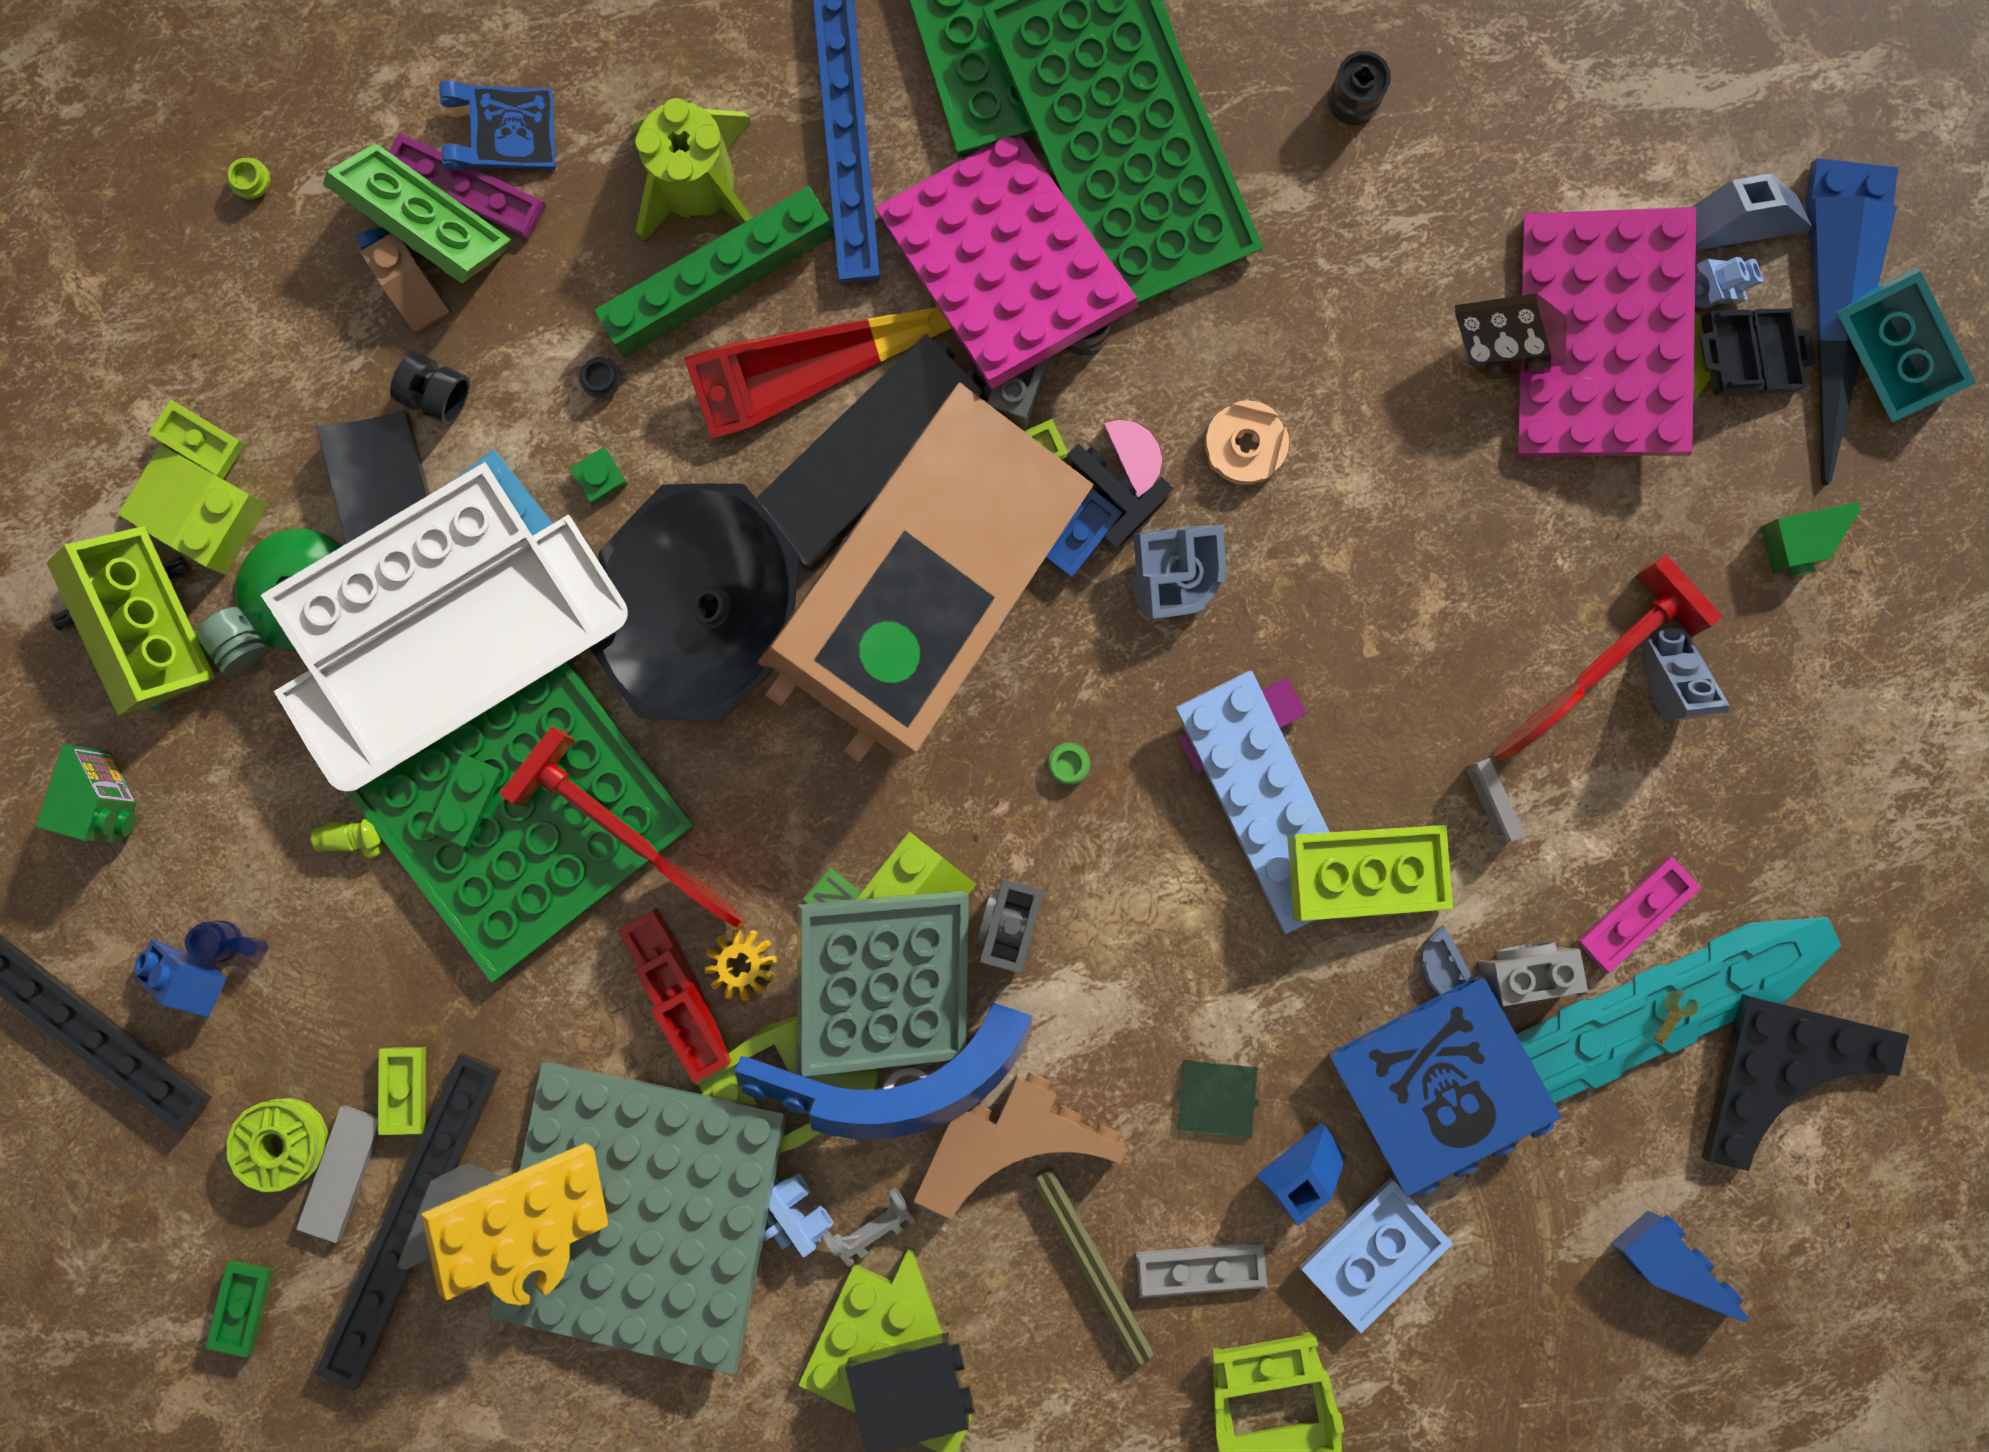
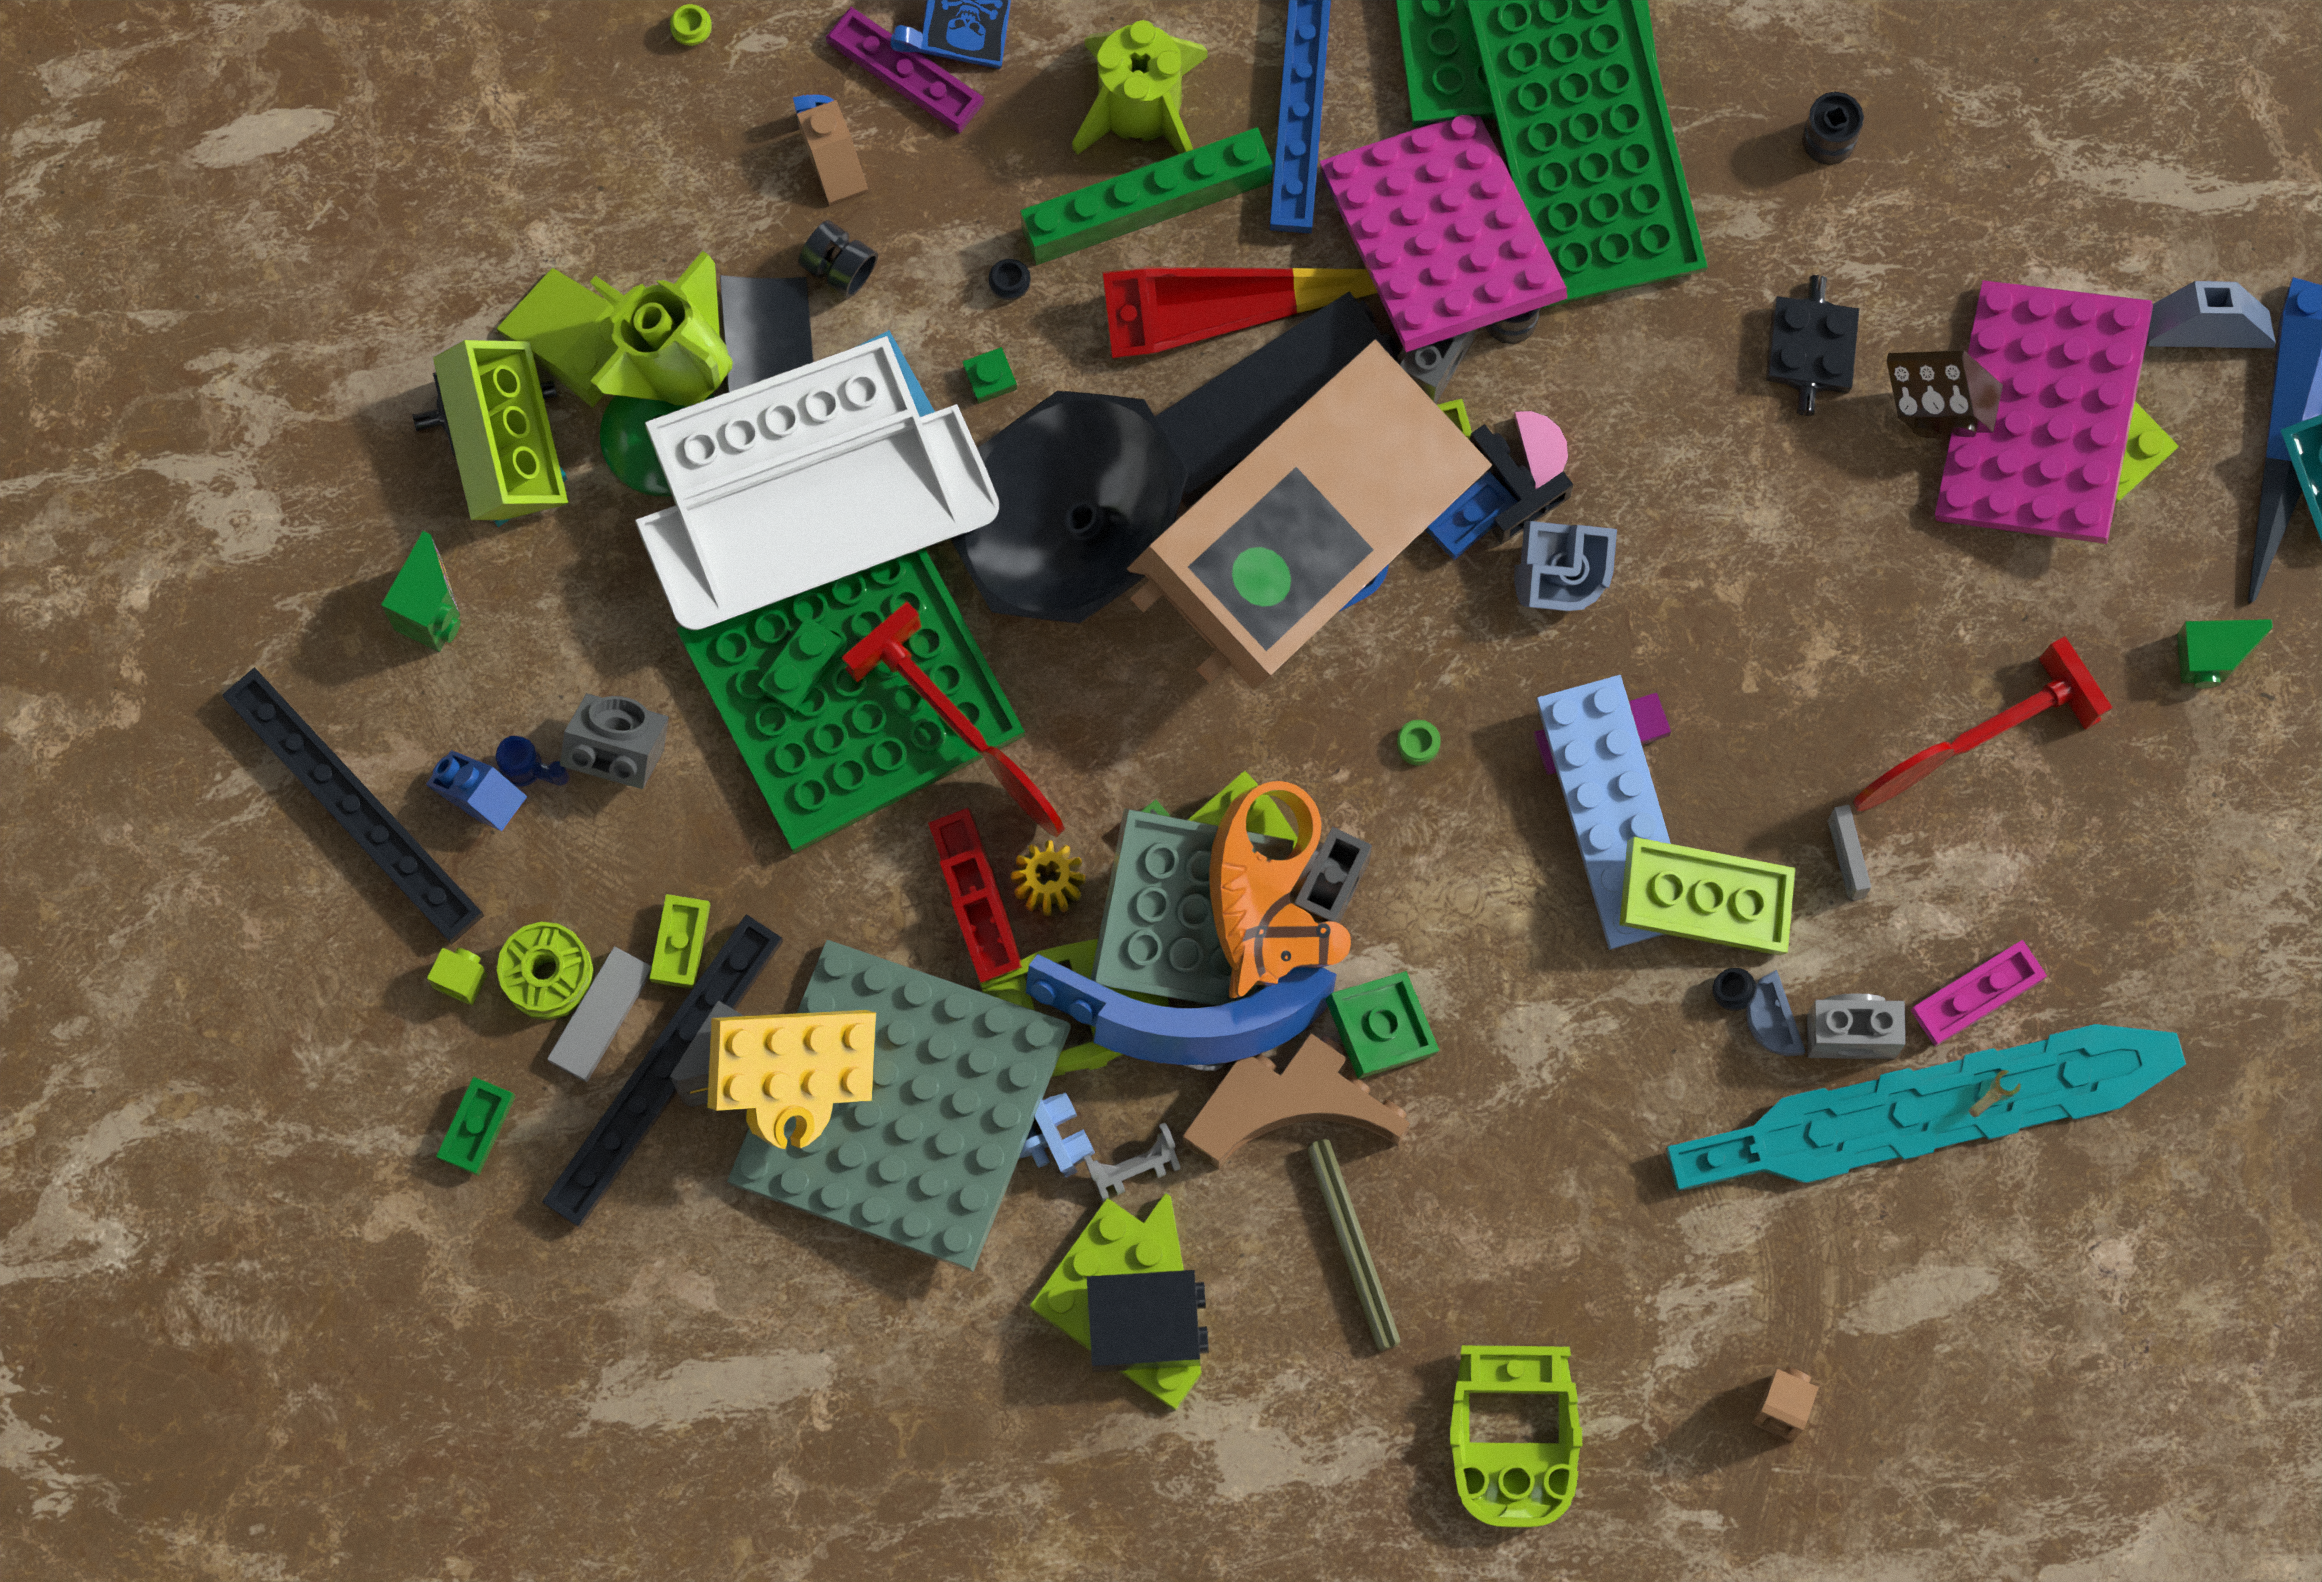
camera: 10 degrees right, 10 degrees down
(194, 1164) = (458, 974): none -> lime plate
(196, 439) = (583, 258): lime plate -> none
(230, 641) = (591, 470): sand green piece -> none
(264, 507) = (666, 339): none -> lime brick
(298, 909) = (614, 740): none -> dark grey brick
(348, 837) = (672, 682): lime arm -> none
(417, 212) = (860, 86): bright green plate -> none
(937, 967) = (1251, 902): none -> orange animal
(1083, 1052) = (1382, 1024): none -> green plate
(1201, 1270) = (1464, 1269): light grey tile -> none
(1217, 1098) = (1511, 1102): clear green piece -> none
(1266, 431) = (1646, 435): light nougat plate -> none
(1304, 1175) = (1586, 1185): blue slope -> none
(1373, 306) = (1812, 345): none -> black plate
(1375, 1255) = (1647, 1283): light blue plate -> none
(1408, 952) = (1734, 989): none -> black plate
(1445, 1086) = (1747, 1122): blue panel -> none
(1529, 1355) = (1786, 1404): none -> medium nougat slope
(1661, 1258) = (1946, 1344): blue slope -> none
(1679, 677) = (2059, 762): sand blue slope -> none
(1725, 281) = (2174, 381): light blue hips -> none
(1755, 351) = (2194, 455): black piece -> none
(1778, 1057) = (2104, 1158): black plate -> none

